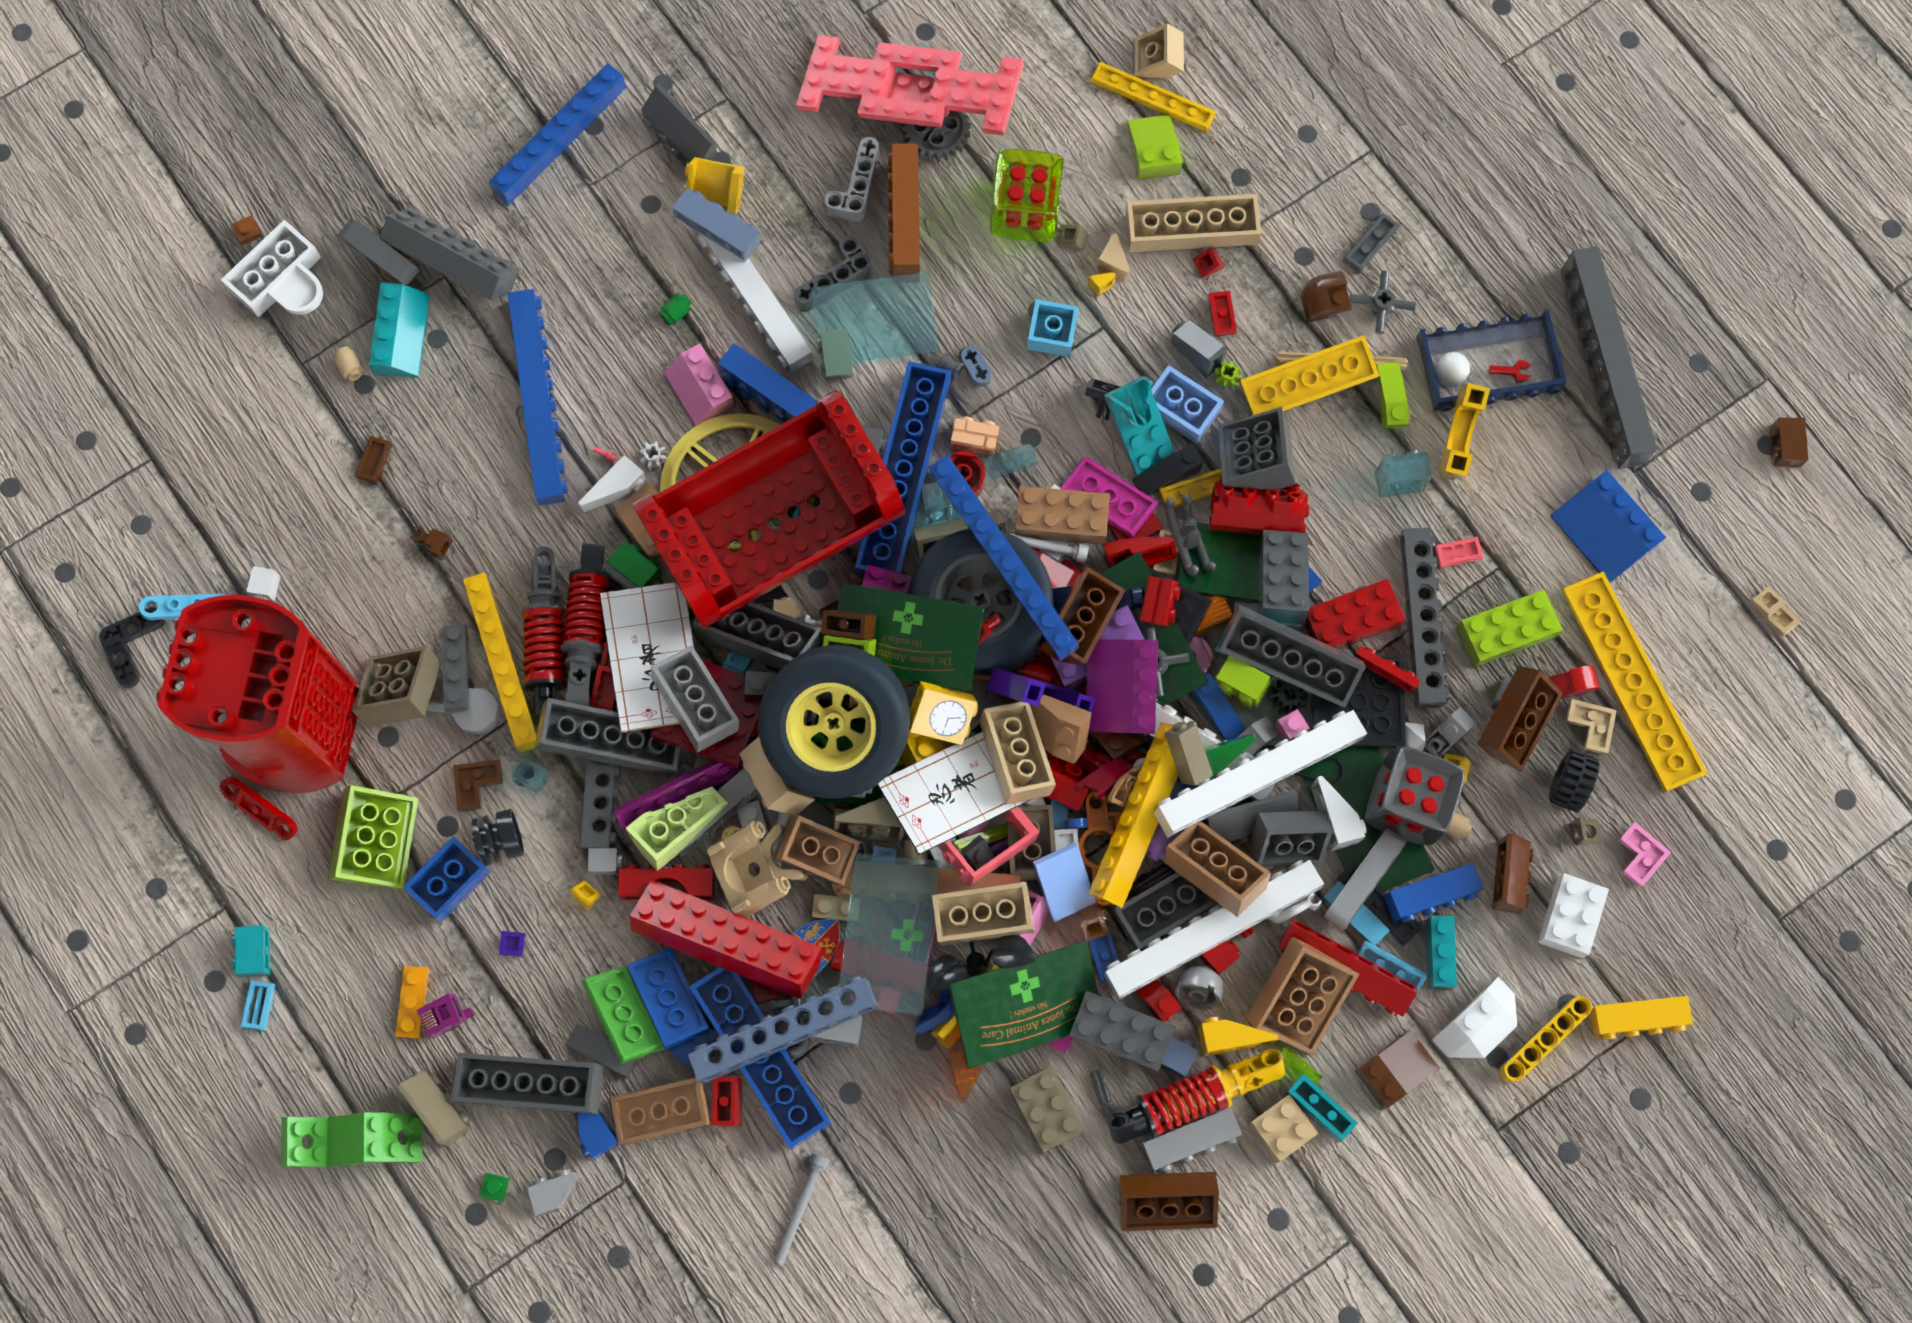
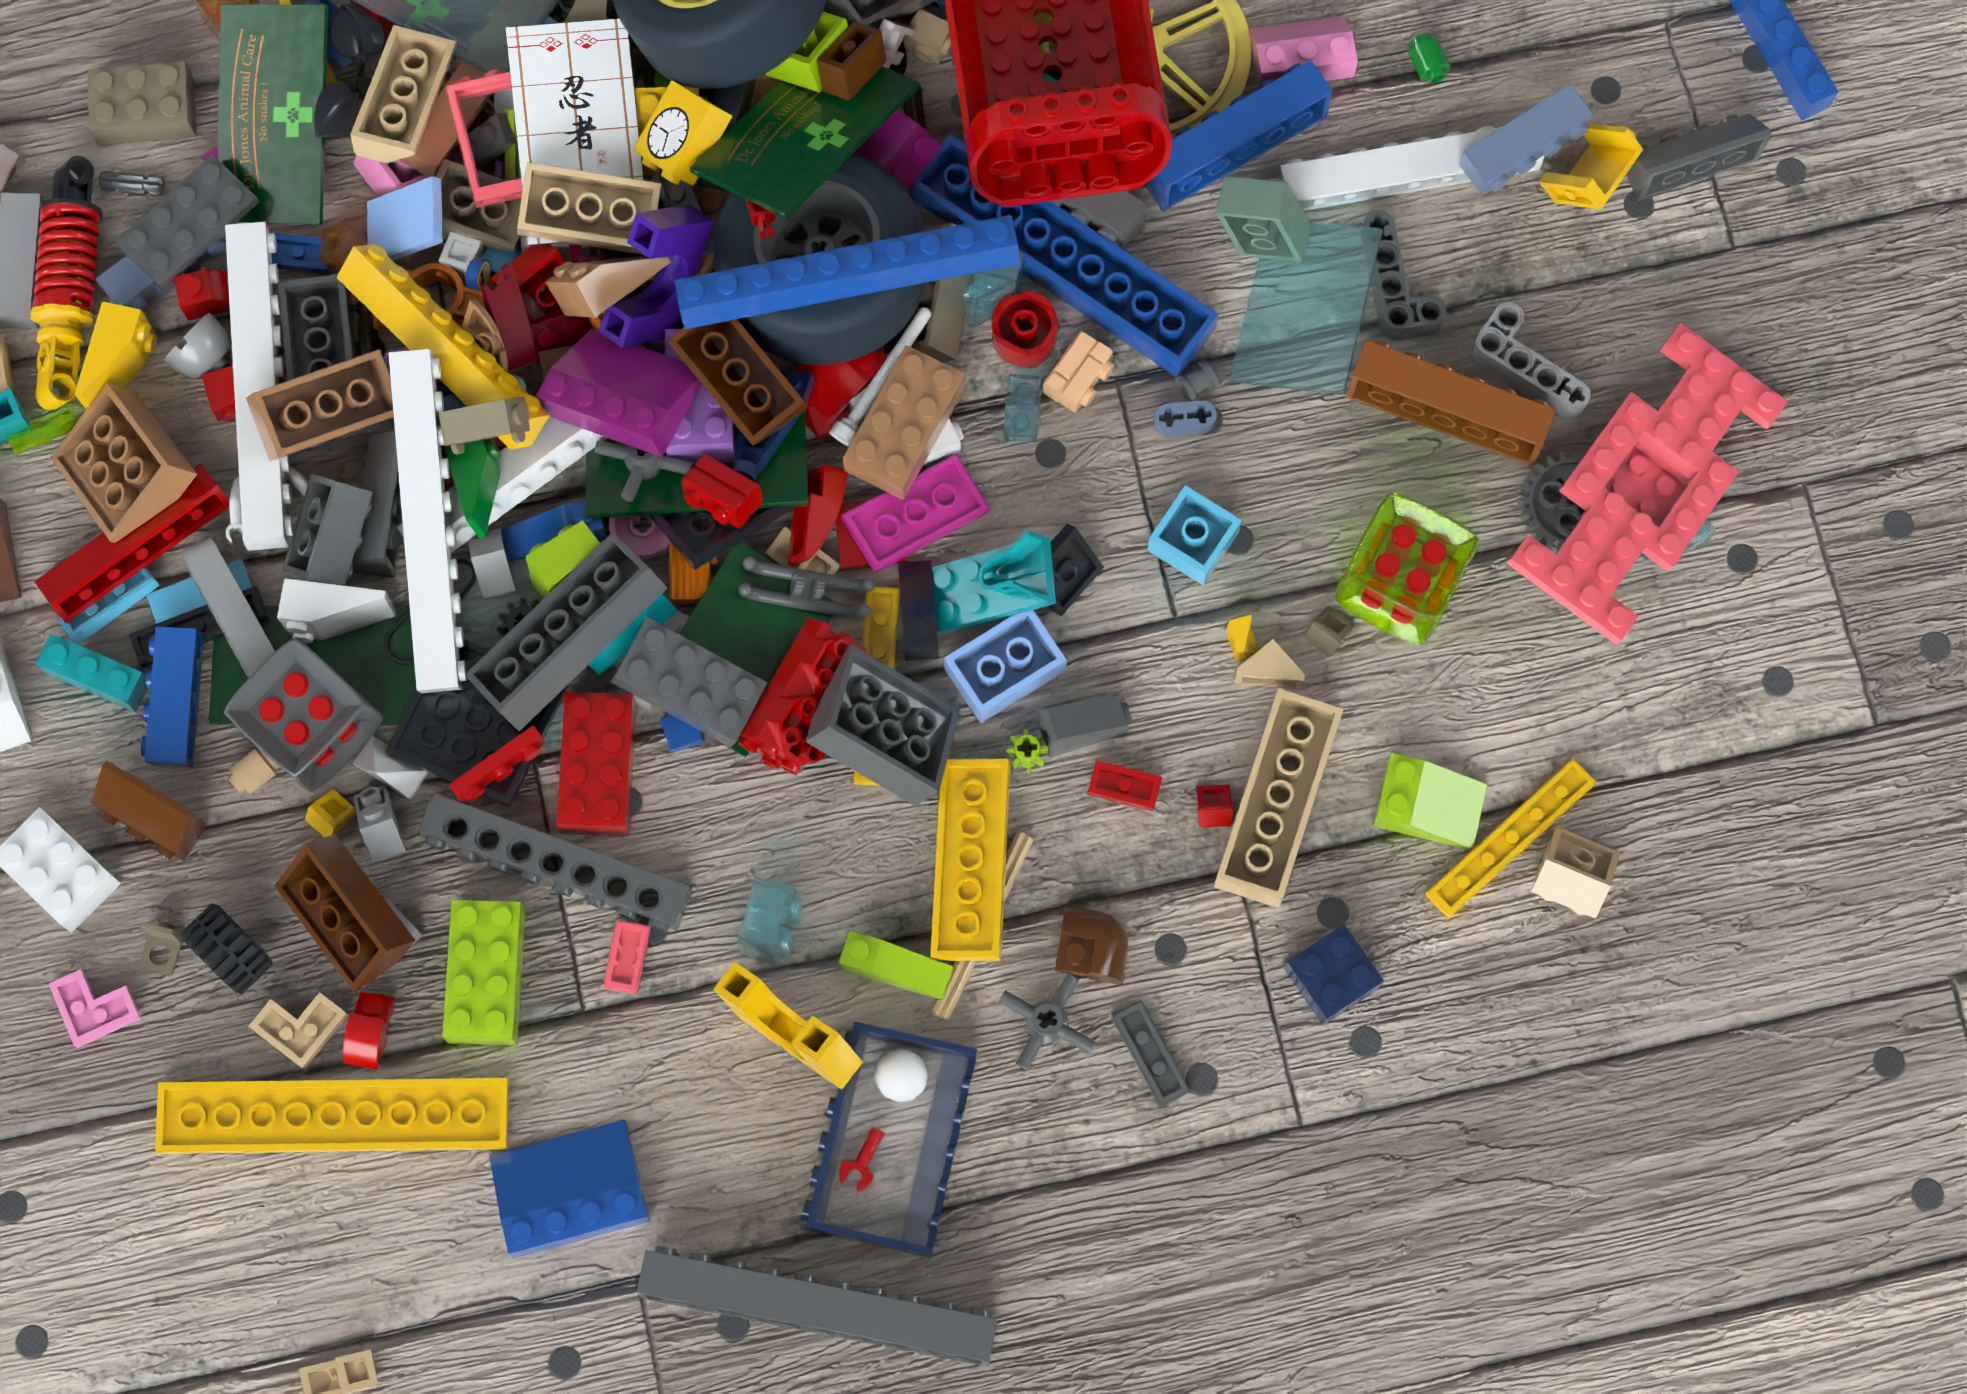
camera: 115 degrees right, 0 degrees up
(1281, 158) = (1333, 974): none -> dark blue brick
(1291, 725) = (480, 610): bright pink brick -> none

